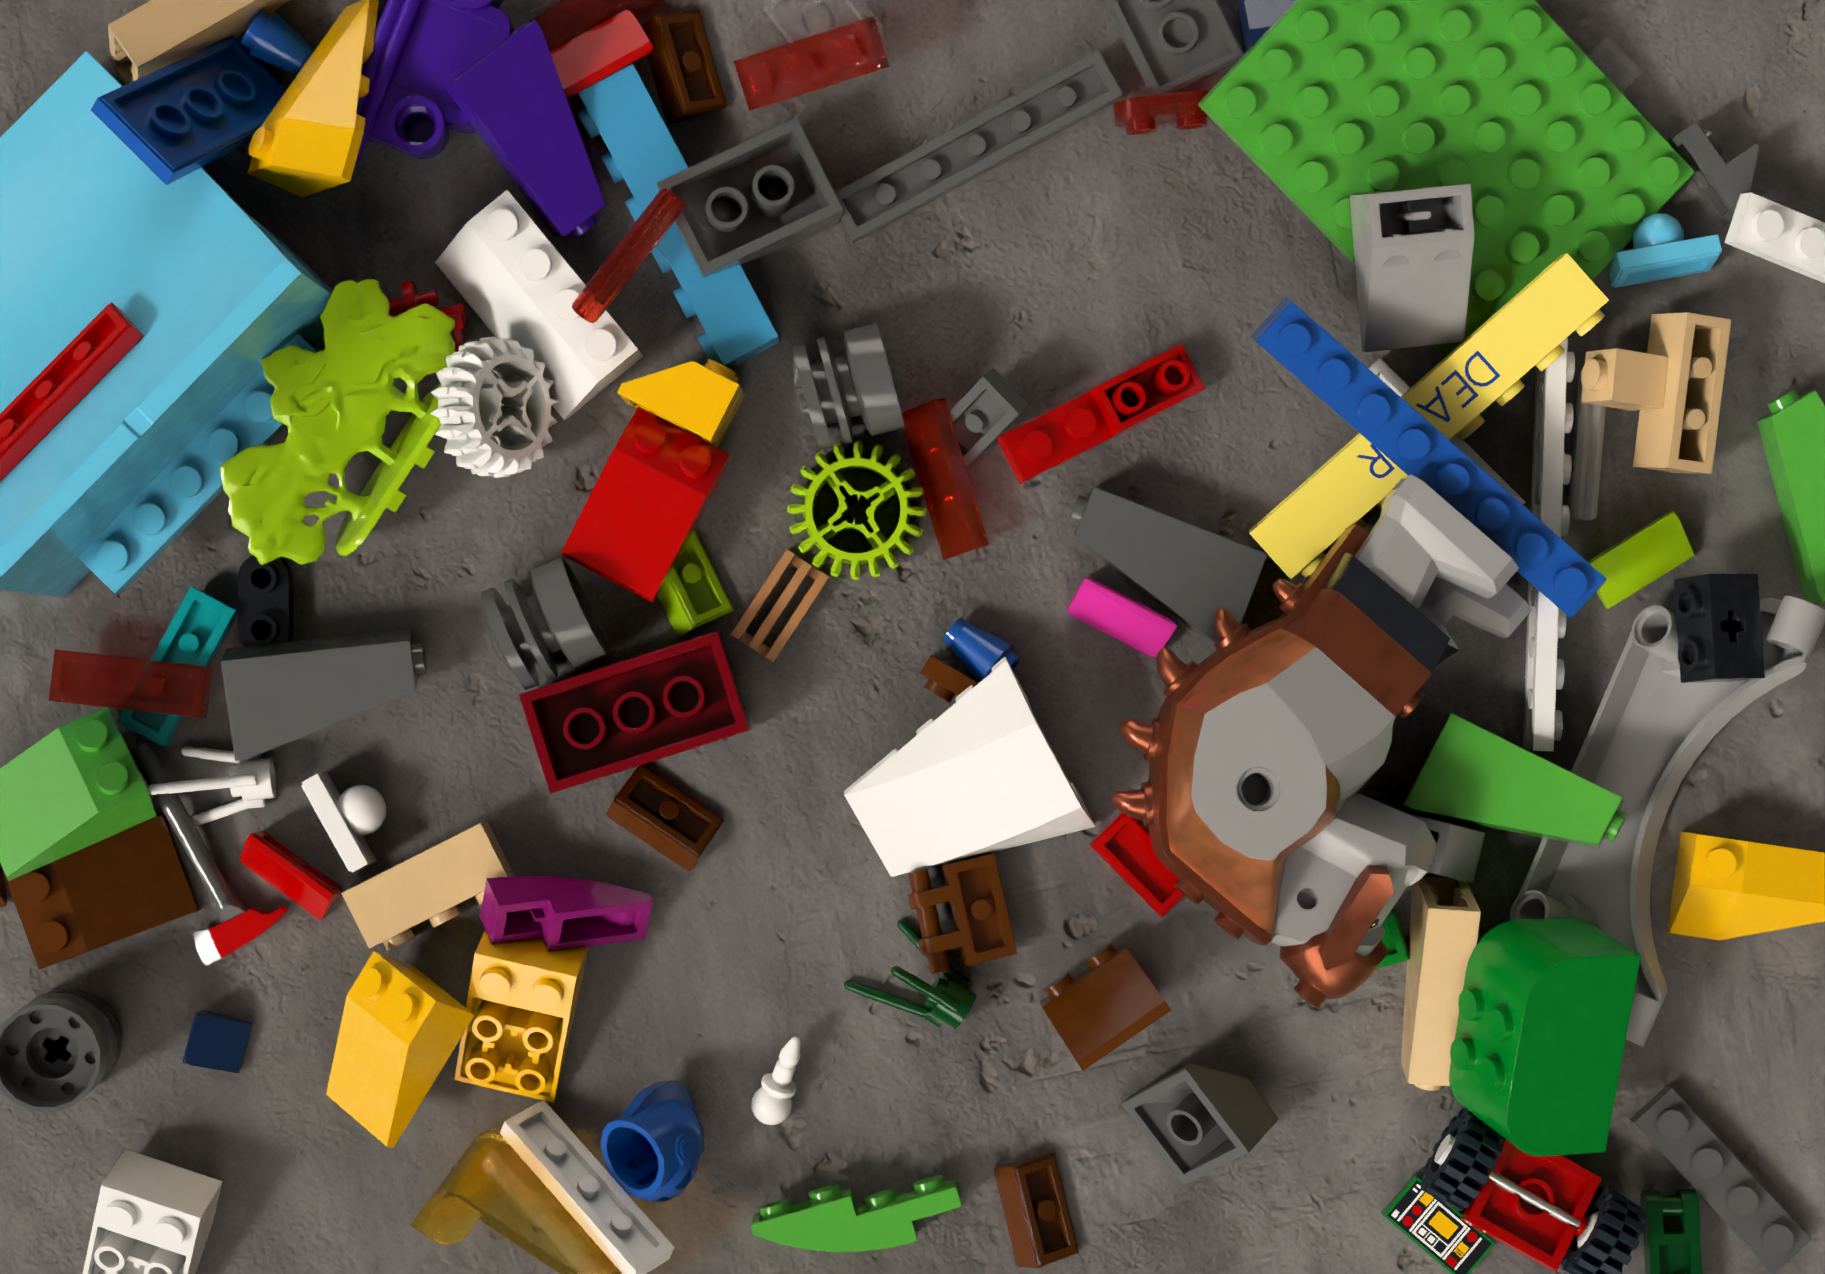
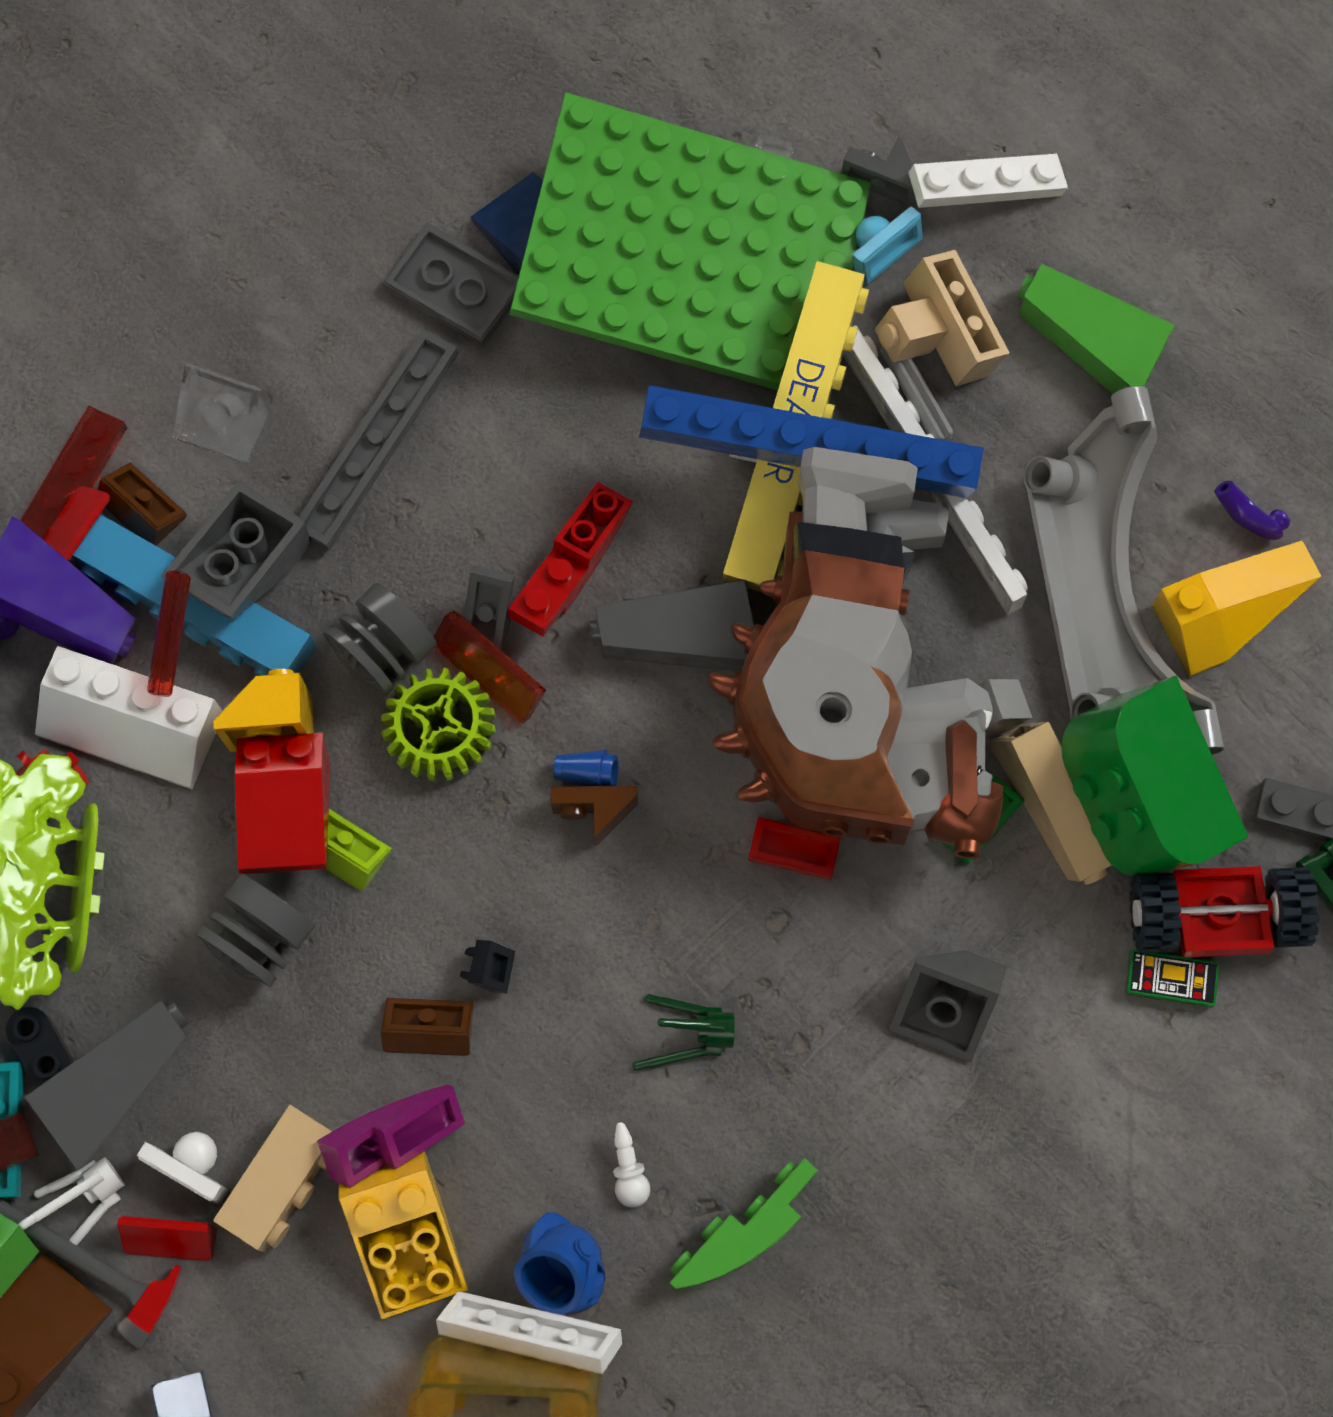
camera: 25 degrees left, 15 degrees down
(392, 1045) = (316, 1315): yellow slope -> none
(480, 406) = (131, 798): white gear -> none
(635, 712) = (360, 955): dark red brick -> none
(756, 642) = (425, 788): medium nougat tile -> none
(761, 799) = (490, 966): none -> black tile
(812, 63) = (228, 444): clear red plate -> none
(968, 783) = (634, 861): white wedge -> none
(977, 910) = (695, 950): reddish brown plate -> none
(1036, 1211) = (875, 1147): reddish brown slope -> none
(1102, 1004) = (826, 956): reddish brown slope -> none
(1121, 617) = (670, 687): dark pink slope -> none
(1143, 113) = (479, 350): clear red plate -> none
(1412, 265) = (719, 328): light grey slope -> none
(1504, 787) = (1019, 634): bright green slope -> none
(1641, 558) = (1003, 441): lime slope -> none
(1719, 628) = (1082, 444): black brick -> none

